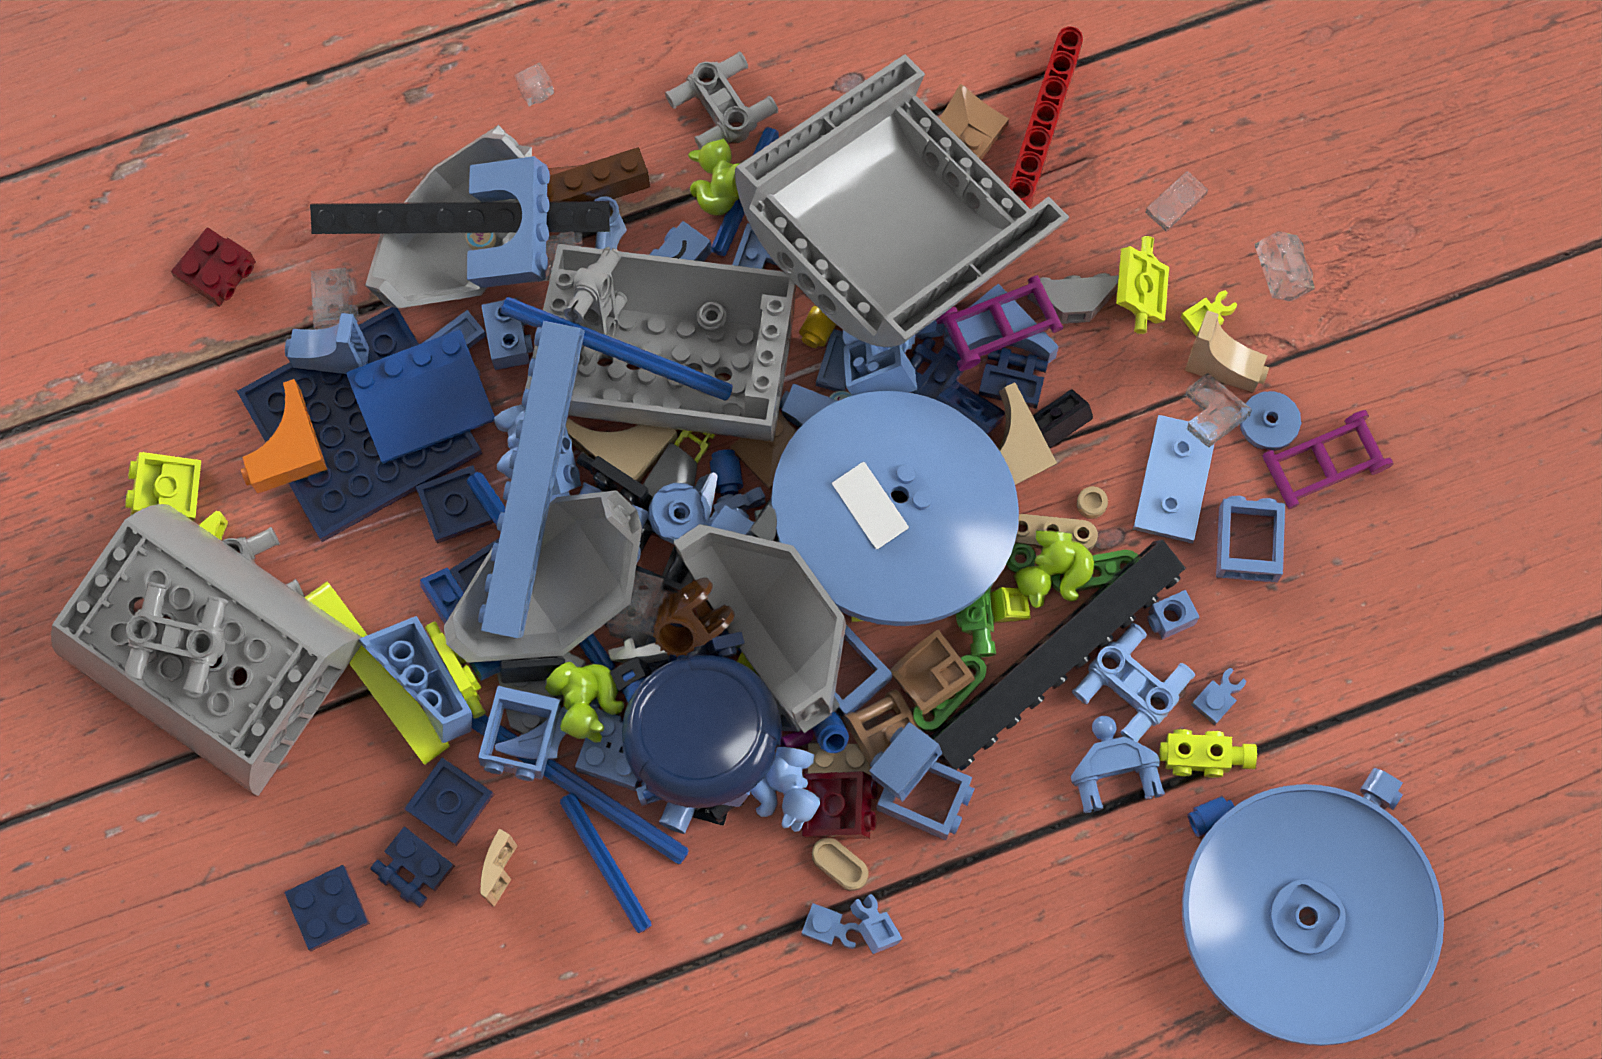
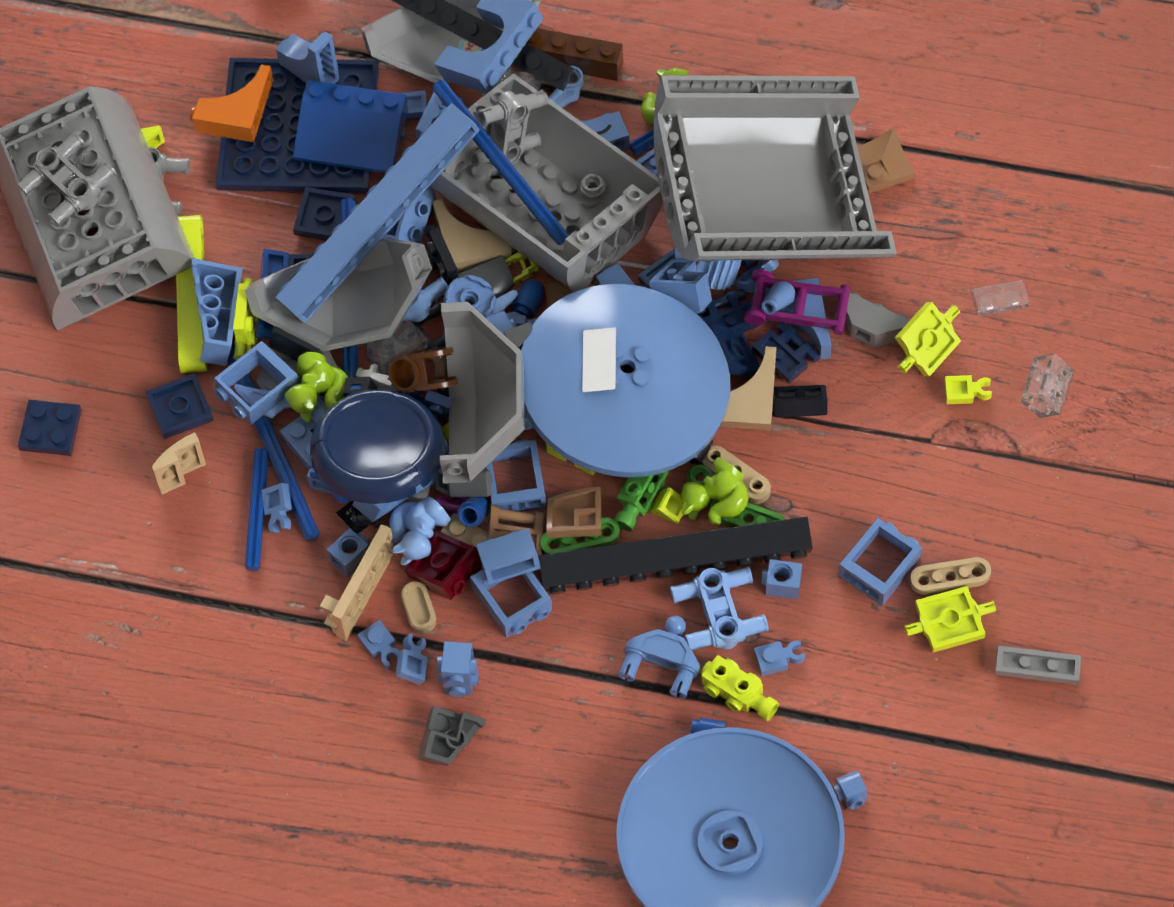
camera: 35 degrees right, 10 degrees down
(164, 481) = (141, 89): neon yellow plate -> none
(332, 296) = (344, 28): clear brick -> none
(417, 858) = (132, 431): dark blue plate -> none
(624, 844) = (276, 504): none -> medium blue plate
(676, 817) = (327, 507): medium blue beam -> none
(721, 100) = (708, 31): light grey piece -> none
(733, 864) = (348, 562): none -> medium blue brick
(777, 926) = (347, 610): none -> tan piece
(816, 328) = (661, 240): yellow brick -> none
(933, 909) = (457, 669): none -> medium blue brick
(961, 981) = (447, 734): none -> dark grey slope
(980, 326) = (779, 296): none -> medium blue cone
(1047, 107) = (948, 178): red beam -> none
(1092, 502) = (782, 470): tan tile -> none
(1173, 482) = (856, 489): light blue plate -> none
(1220, 409) = (922, 460): clear plate -> none
(1225, 358) = (949, 420): tan arch -> none
(1271, 435) = (955, 501): medium blue plate -> none
(1328, 503) = (959, 569): none -> tan plate
(1352, 558) = (950, 619): none -> neon yellow plate
(1354, 422) = (1016, 565): magenta piece -> none
(1463, 554) = (1038, 665): none -> light grey plate

